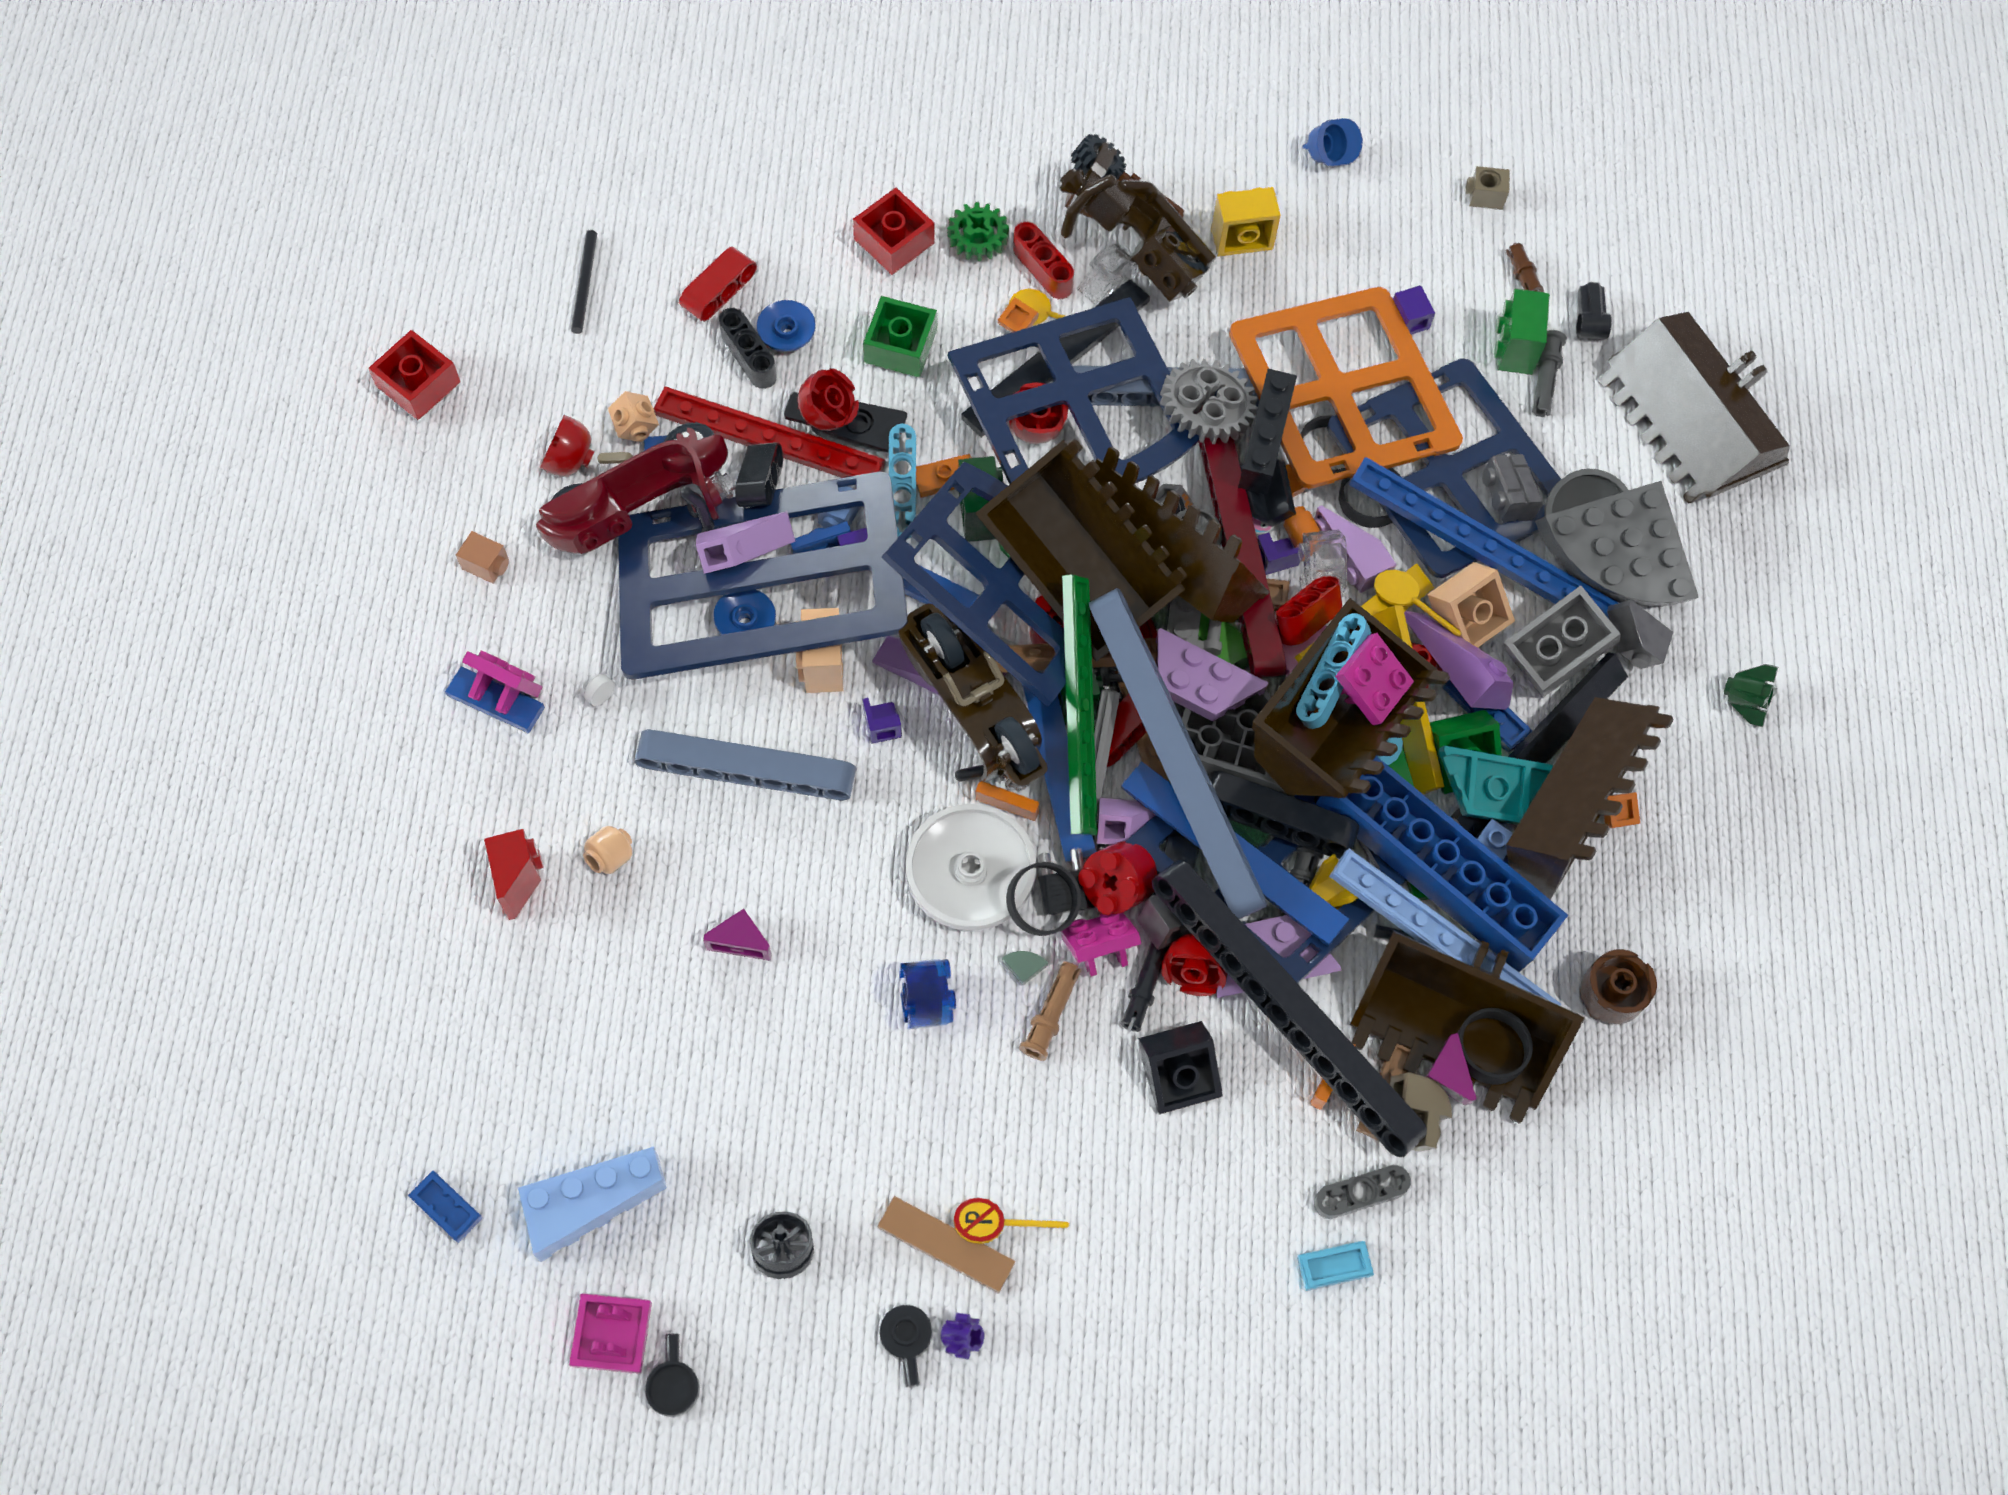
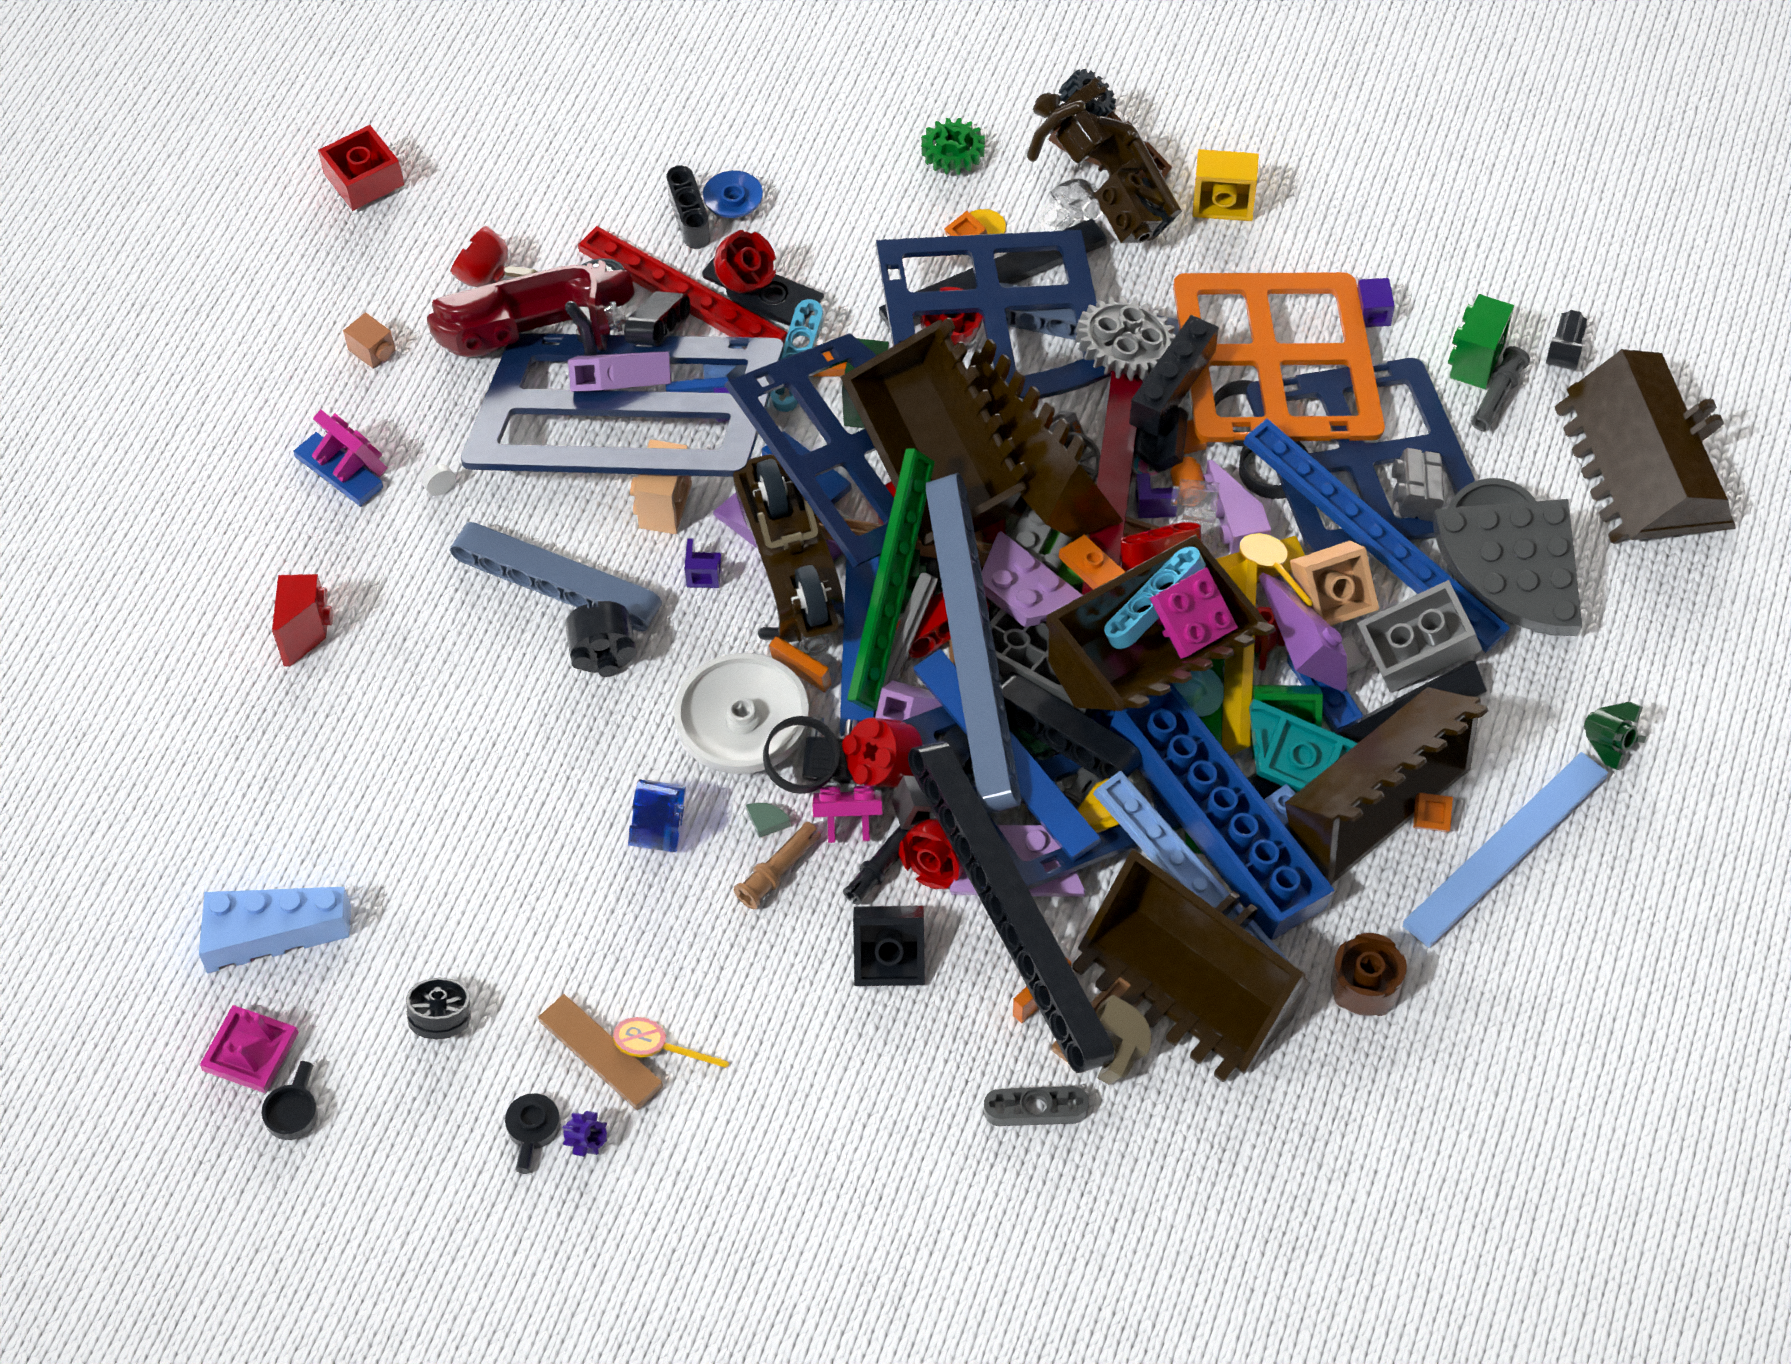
camera: 20 degrees right, 10 degrees down
(445, 1206) = (134, 899): blue plate -> none
(584, 282) = (552, 120): black bar -> none
(608, 850) = (396, 621): light nougat head -> none
(633, 416) = (555, 244): light nougat brick -> none
(717, 284) = (679, 144): red beam -> none
(738, 937) = (492, 727): magenta slope -> none
(746, 604) = (601, 433): blue dish -> none
(814, 823) = (600, 638): none -> black brick
(894, 230) = (867, 128): red brick -> none
(900, 336) = (840, 223): green brick -> none
(1031, 248) = (1009, 184): red beam -> none
(1259, 646) = (1089, 562): none -> orange plate
(1335, 142) = (1348, 131): blue piece -> none
(1335, 1265) = (984, 1168): medium azure tile -> none
(1452, 1072) = (1160, 1009): magenta slope -> none
(1488, 187) = (1496, 203): dark tan brick -> none
(1517, 1025) = (1223, 968): black tyre -> none
(1524, 269) = (1508, 286): reddish brown pin -> none
(1642, 636) = (1507, 649): flat silver slope -> none
(1691, 830) = (1504, 849): none -> light blue tile

